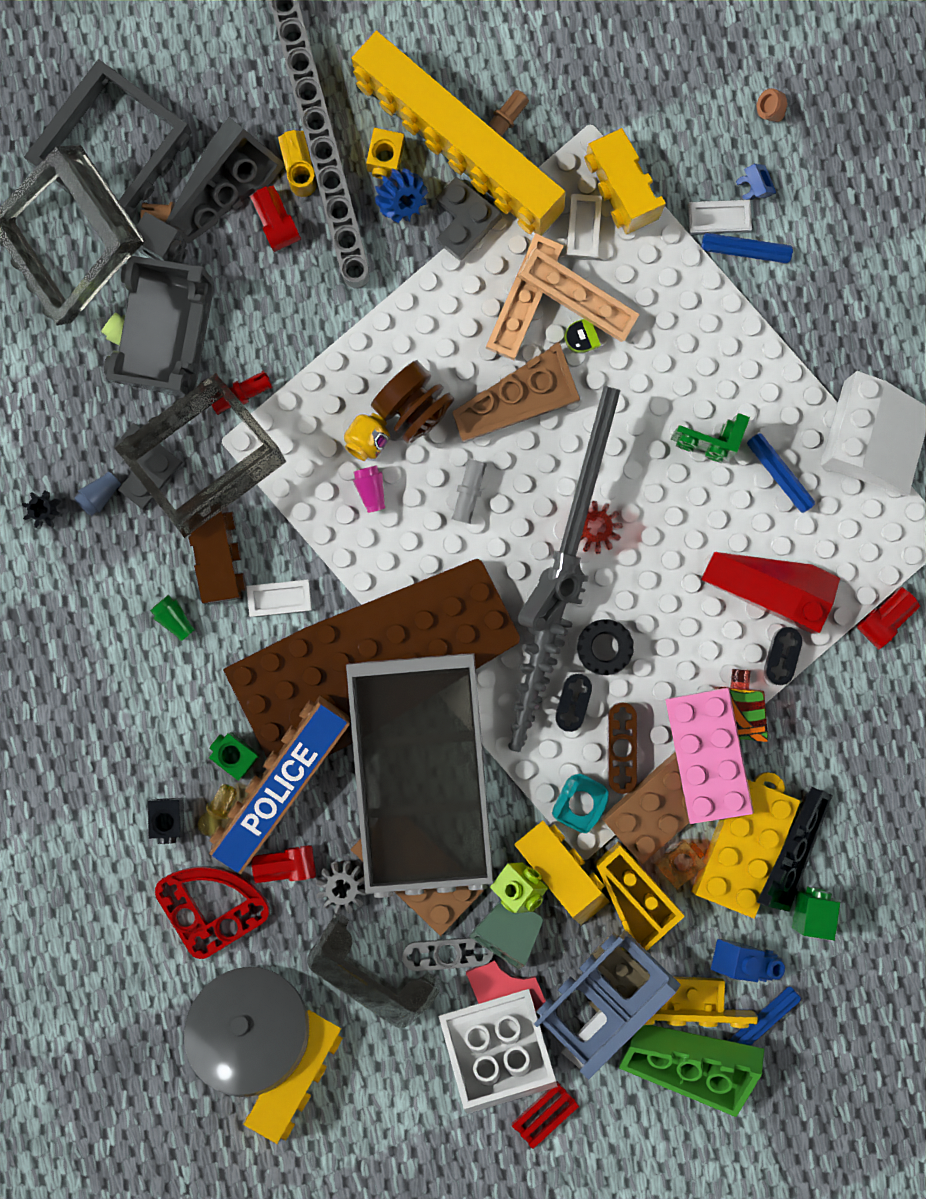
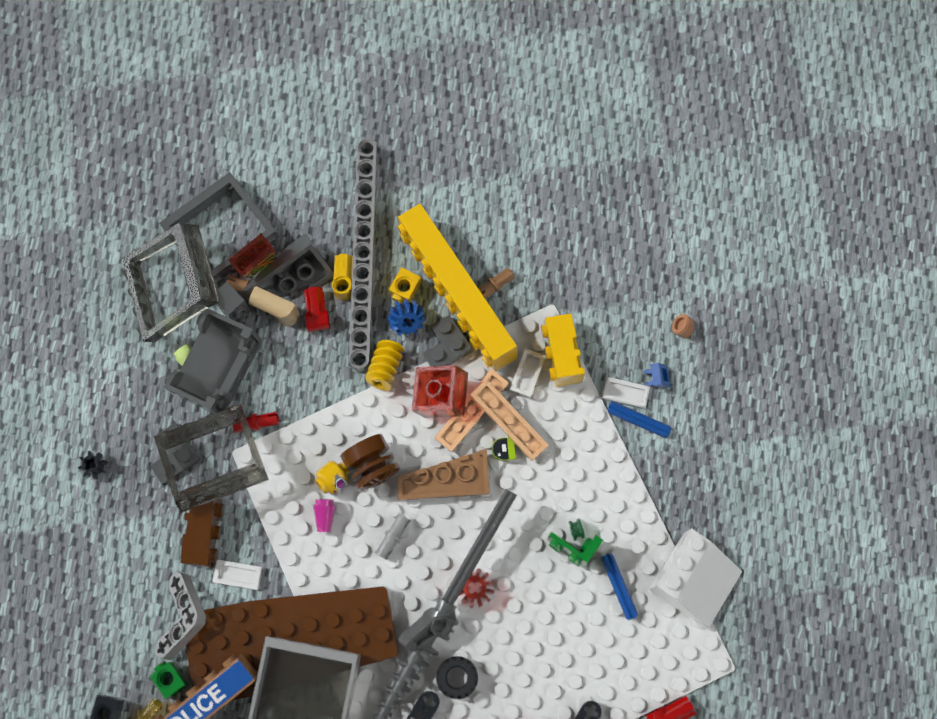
camera: 25 degrees right, 10 degrees down
(96, 494) = (134, 464): sand blue cone -> none
(172, 167) = (253, 257): none -> clear red torso
(172, 617) = (158, 567): green cone -> none
(231, 228) = (283, 309): none -> tan brick
(232, 676) = (191, 617): none -> light grey beam
(390, 267) = (383, 364): none -> yellow piece
(477, 282) = (440, 391): none -> clear red brick
(706, 415) = (576, 529): none -> clear green bush
(782, 588) = (599, 672): red wedge -> none

